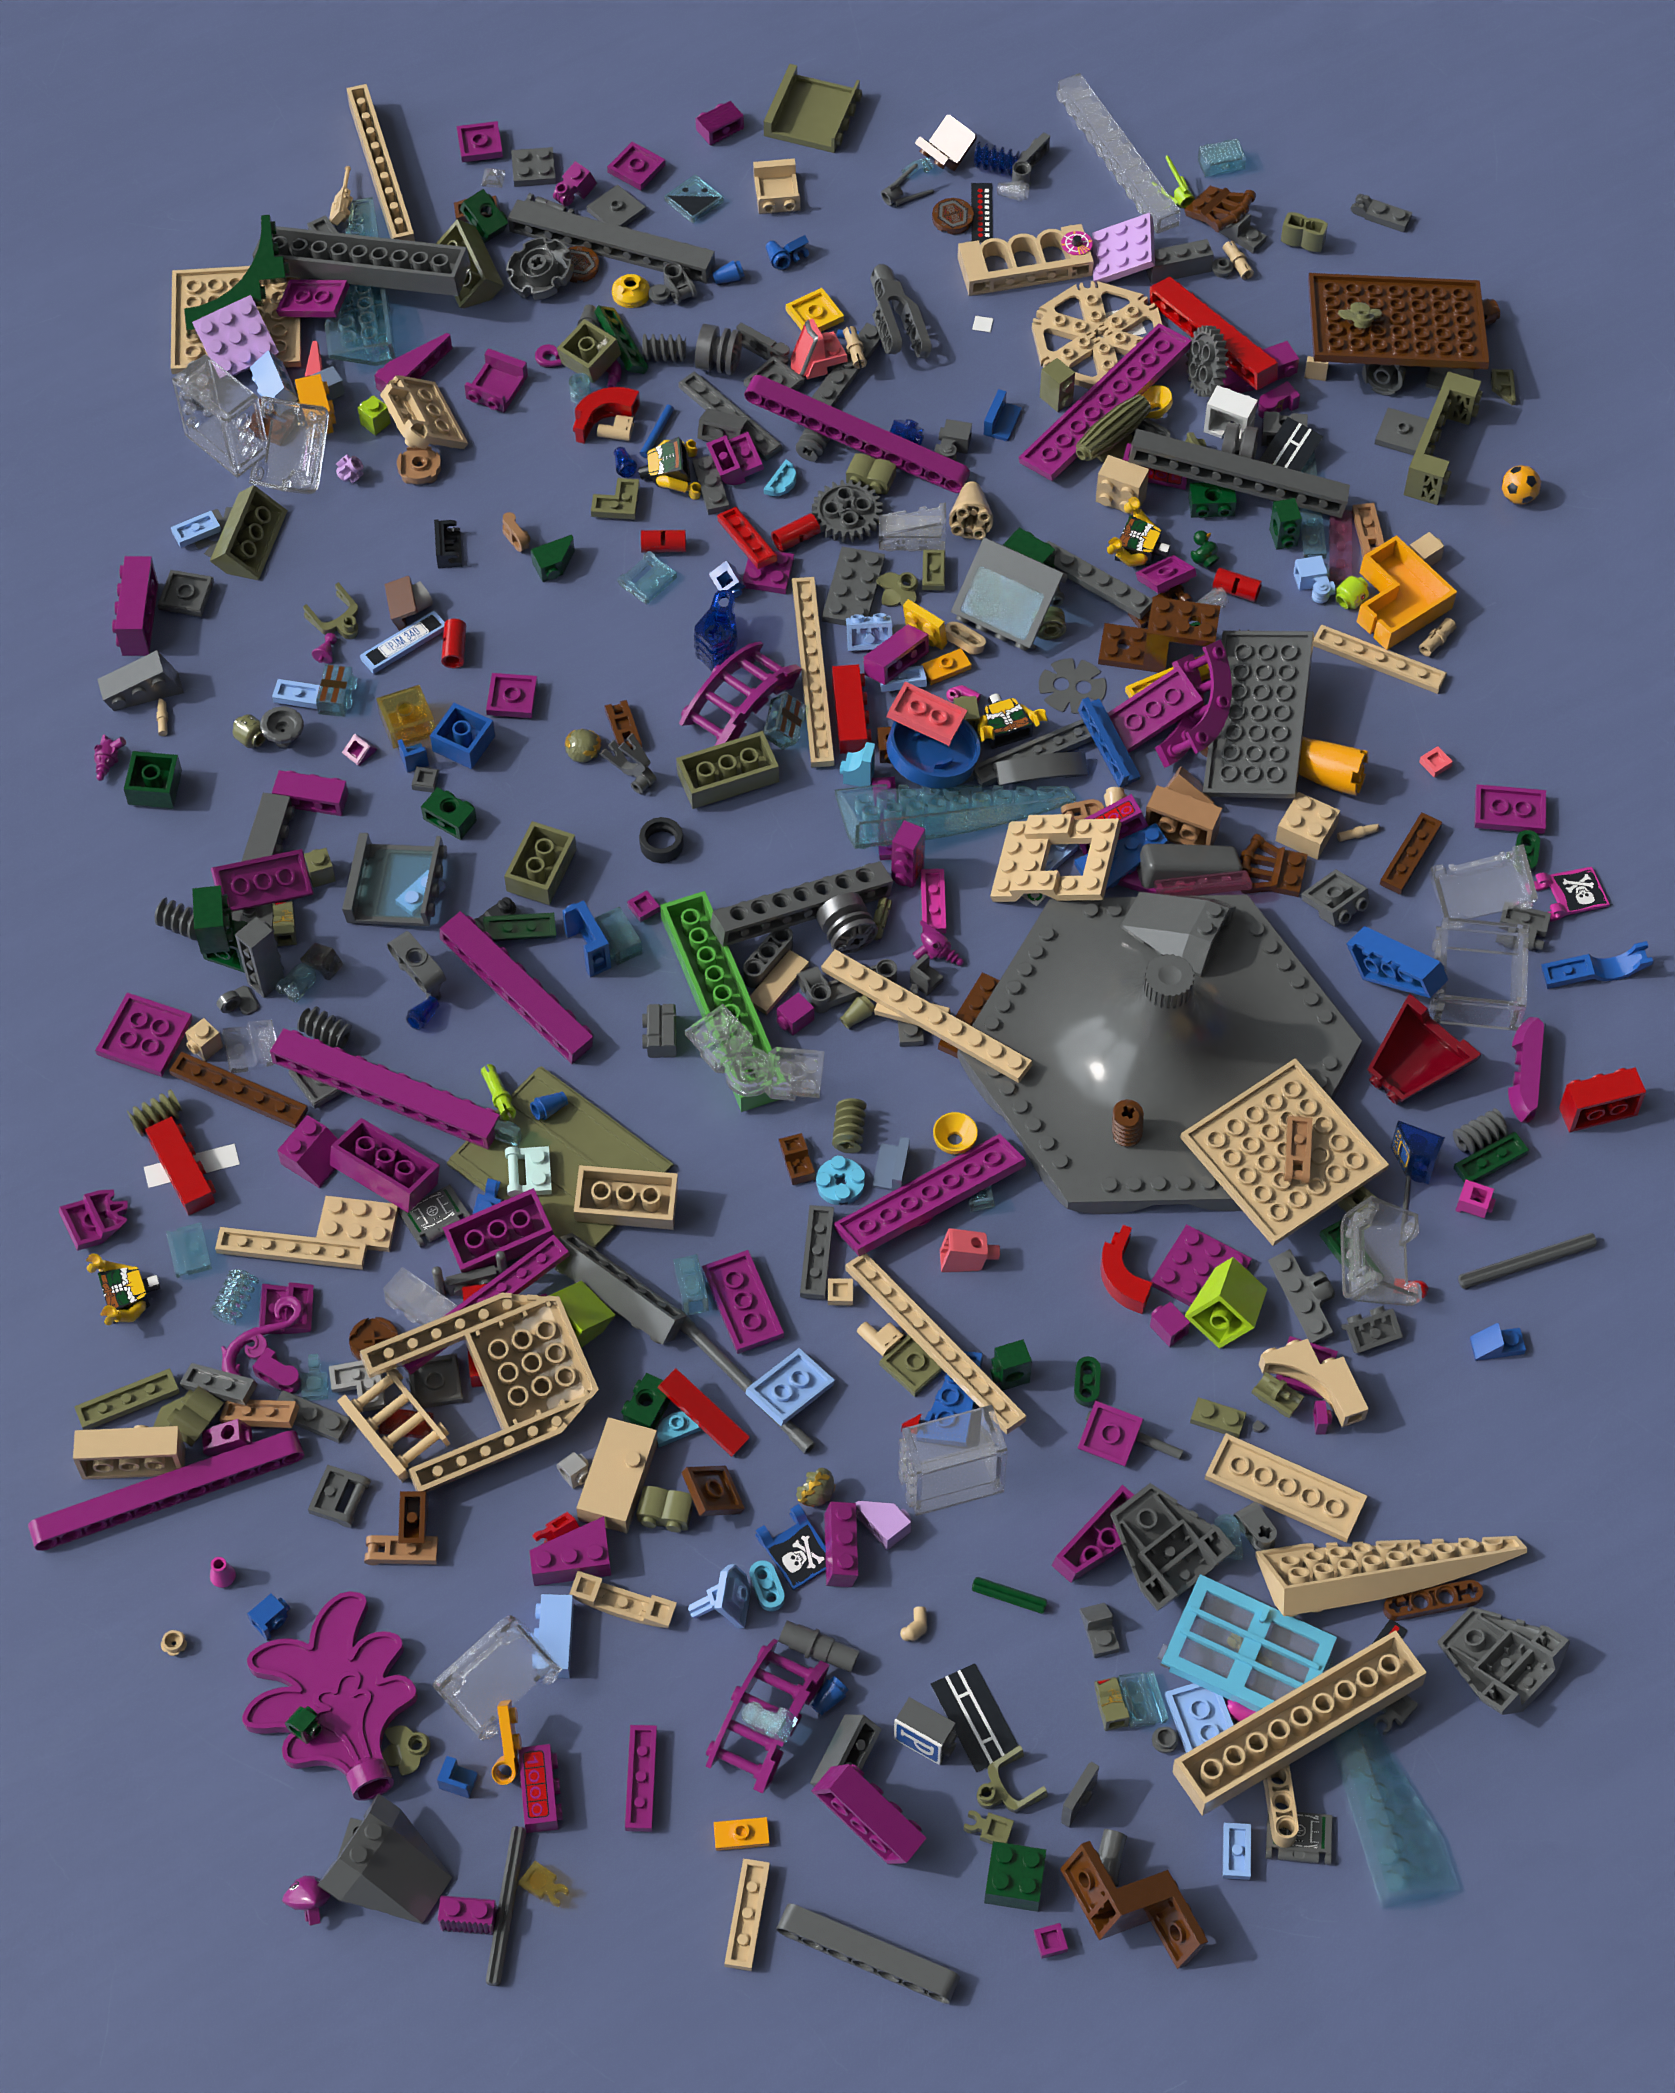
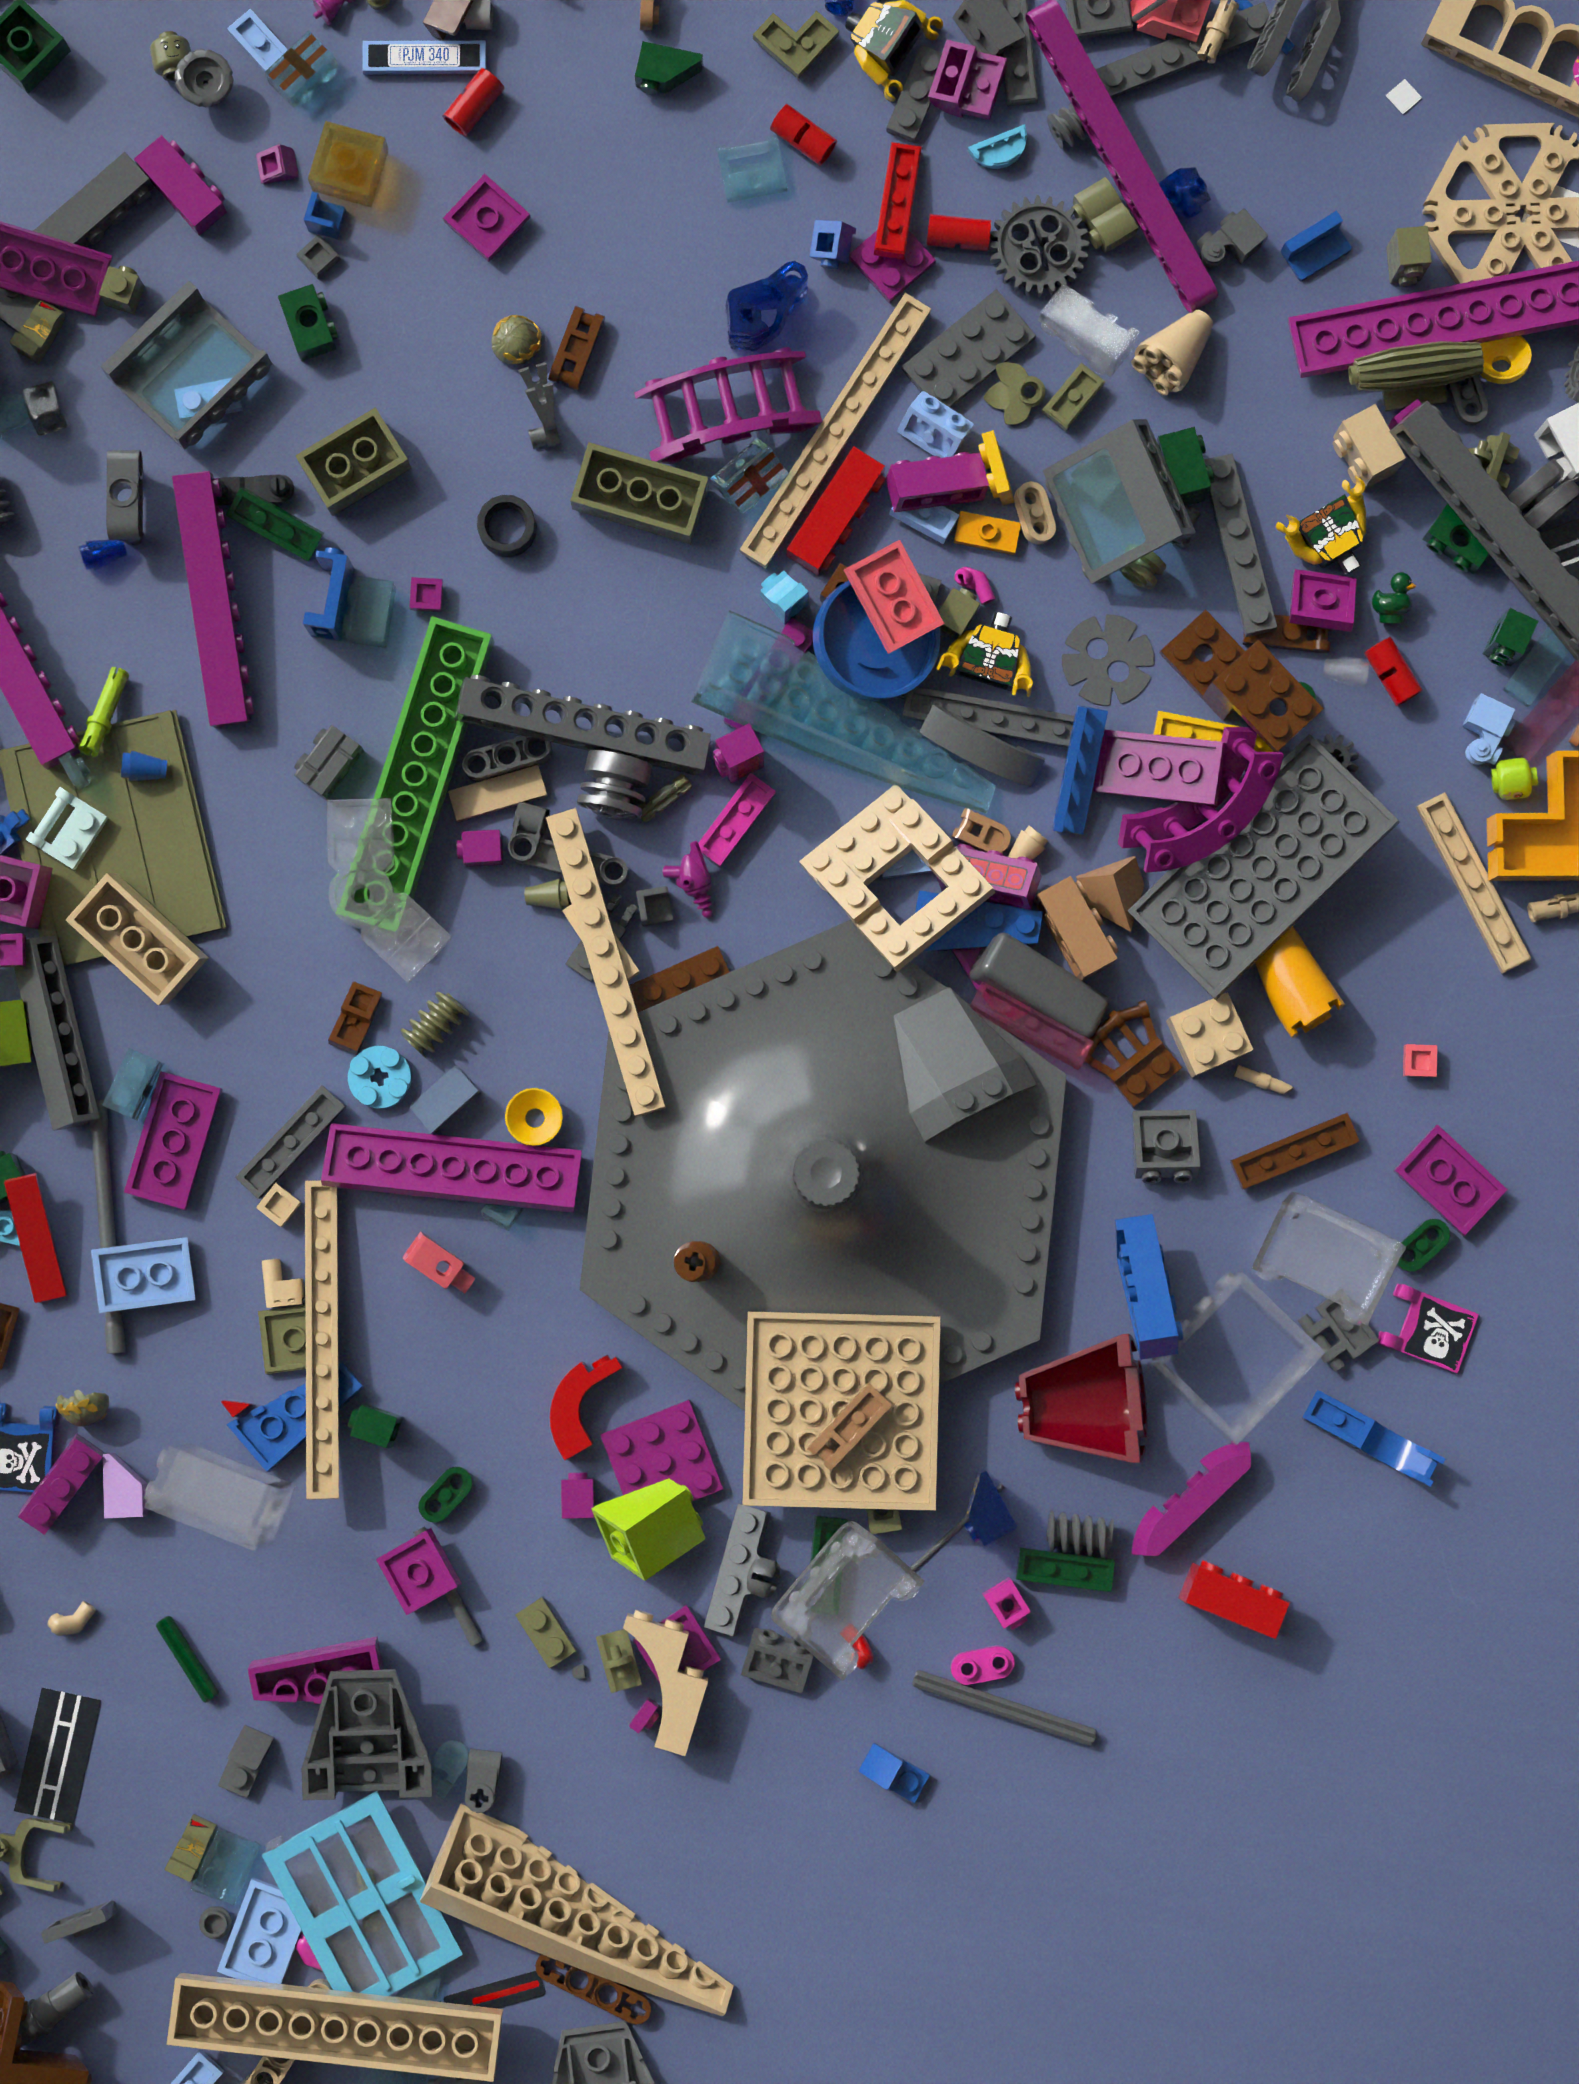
camera: 35 degrees right, 25 degrees up
(462, 735) = (390, 234): blue brick -> none
(1286, 1487) = (547, 1760): tan plate -> none
(1494, 1245) = (982, 1664): none -> dark pink plate

